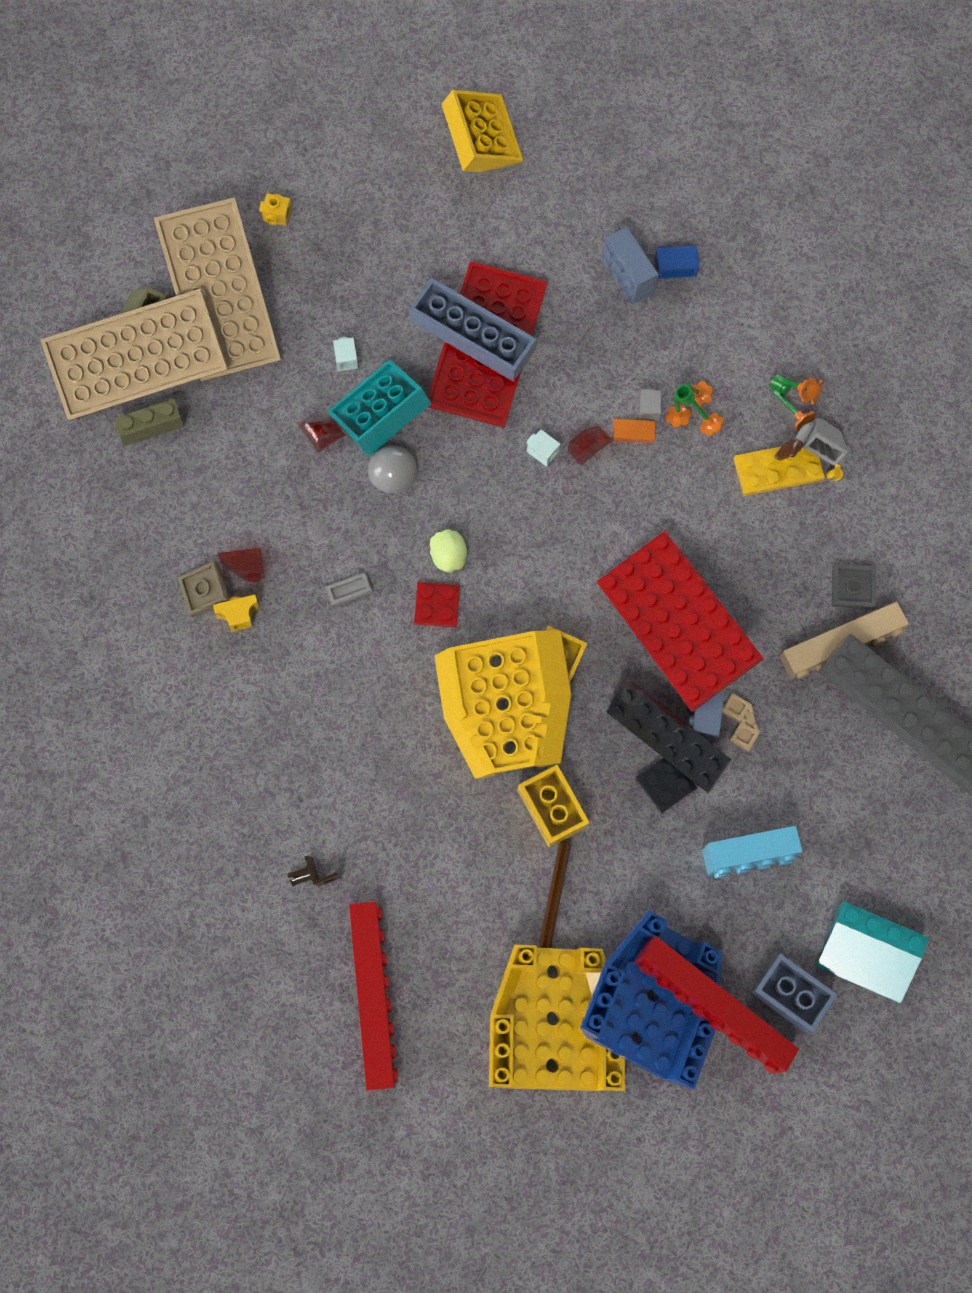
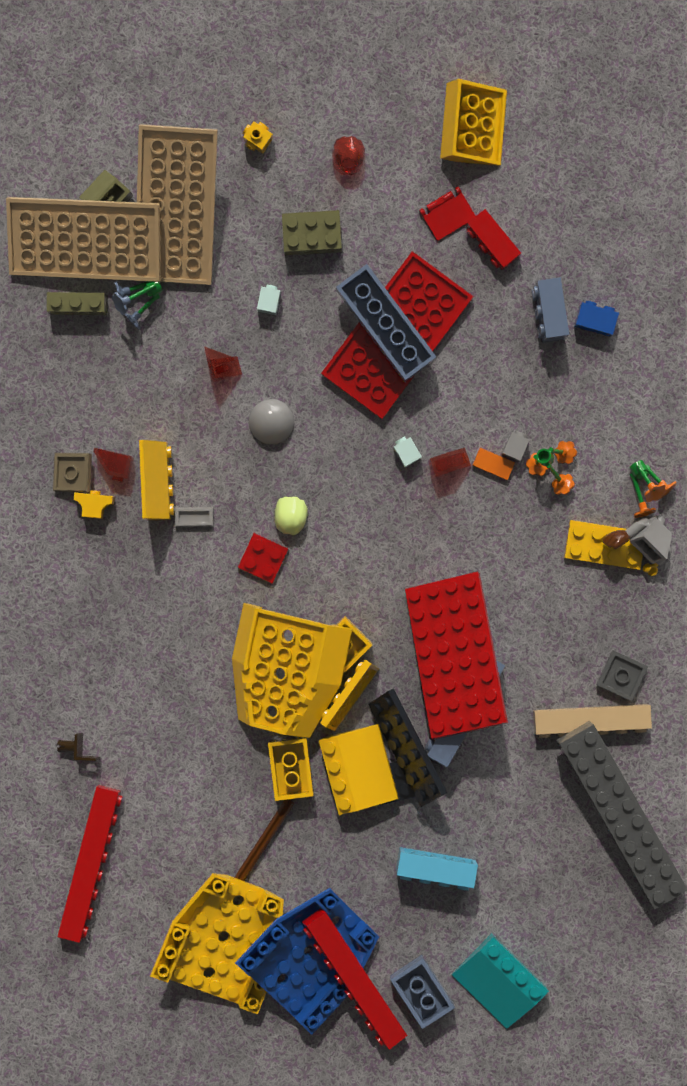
camera: 25 degrees right, 15 degrees up
(196, 398) = (151, 288): none -> plant
(295, 562) = (155, 480): none -> yellow slope
(364, 277) = (311, 232): none -> olive brick
(371, 198) = (348, 155): none -> clear red hair
(379, 407) = (279, 362): teal slope -> none
(490, 219) = (447, 214): none -> red piece
(545, 225) = (492, 240): none -> red brick
(582, 711) = (353, 689): none -> yellow plate
(625, 779) = (358, 769): none -> yellow slope
(742, 712) = (479, 762): tan tile -> none

